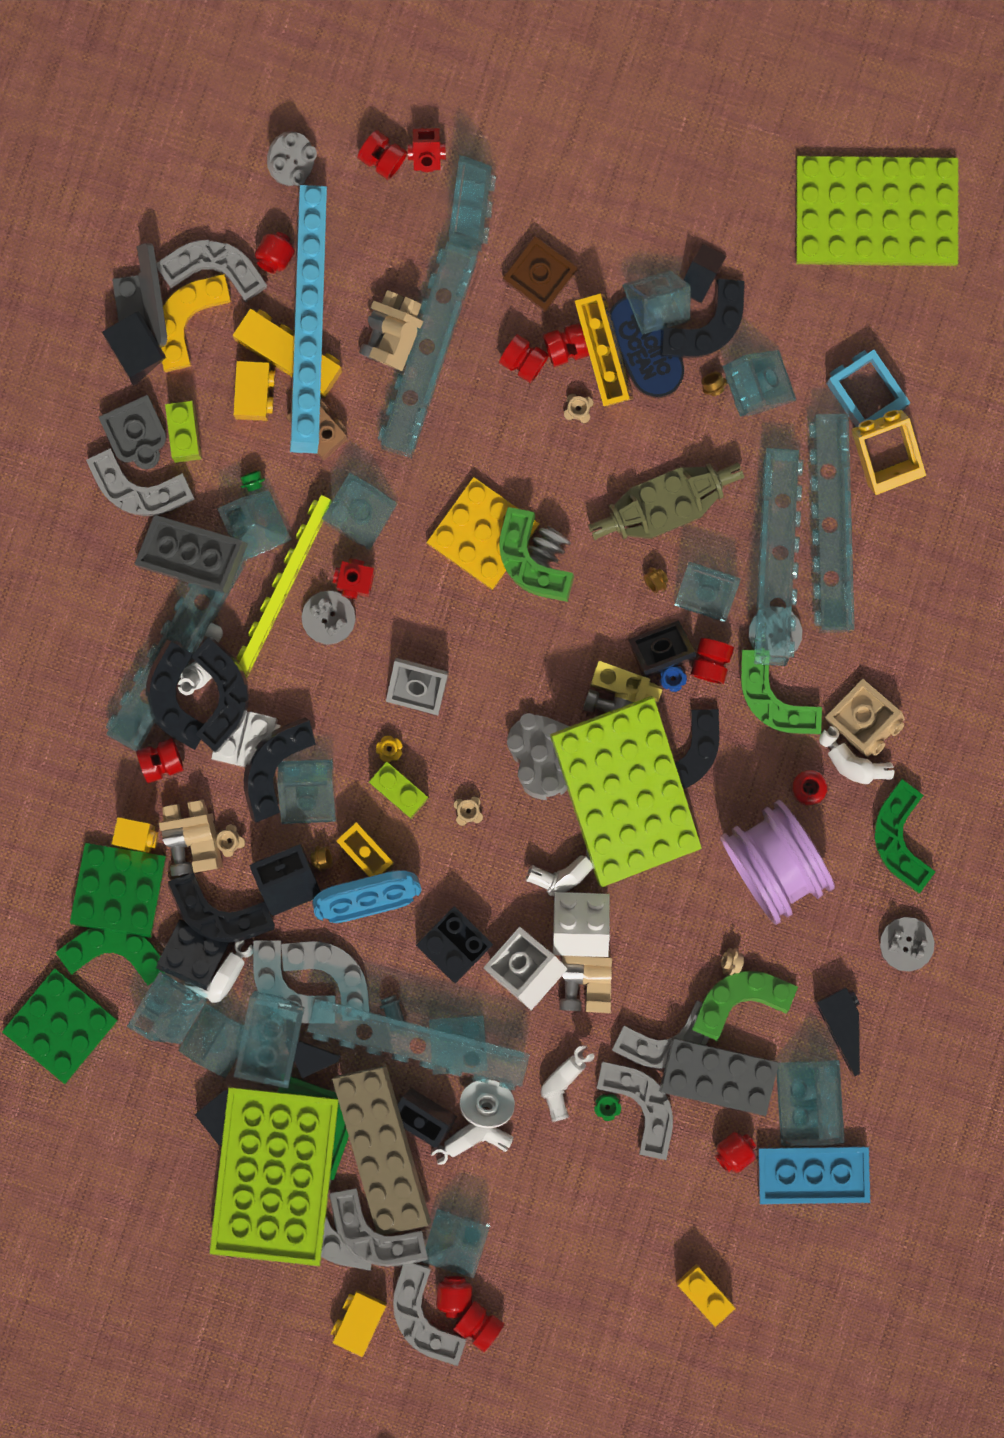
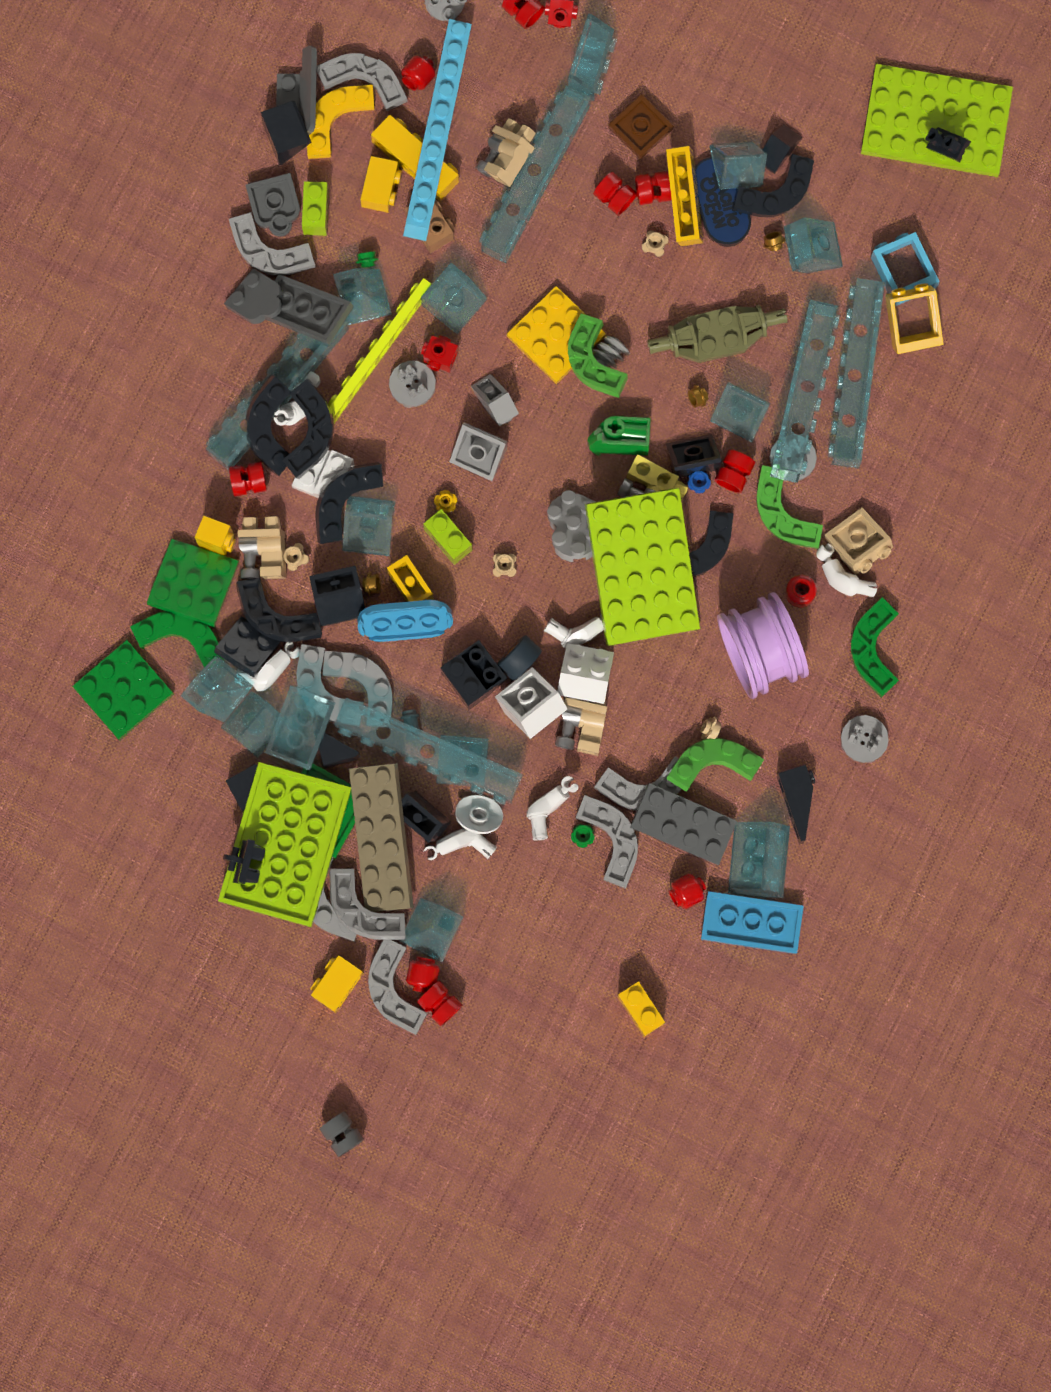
camera: 10 degrees right, 5 degrees down
(133, 548) = (256, 298): none -> dark grey plate
(232, 1218) = (248, 851): none -> black hips
(426, 621) = (495, 400): none -> light grey slope
(503, 917) = (519, 658): none -> black wheel
(587, 642) = (630, 437): none -> green piece
(894, 241) = (946, 143): none -> black hips

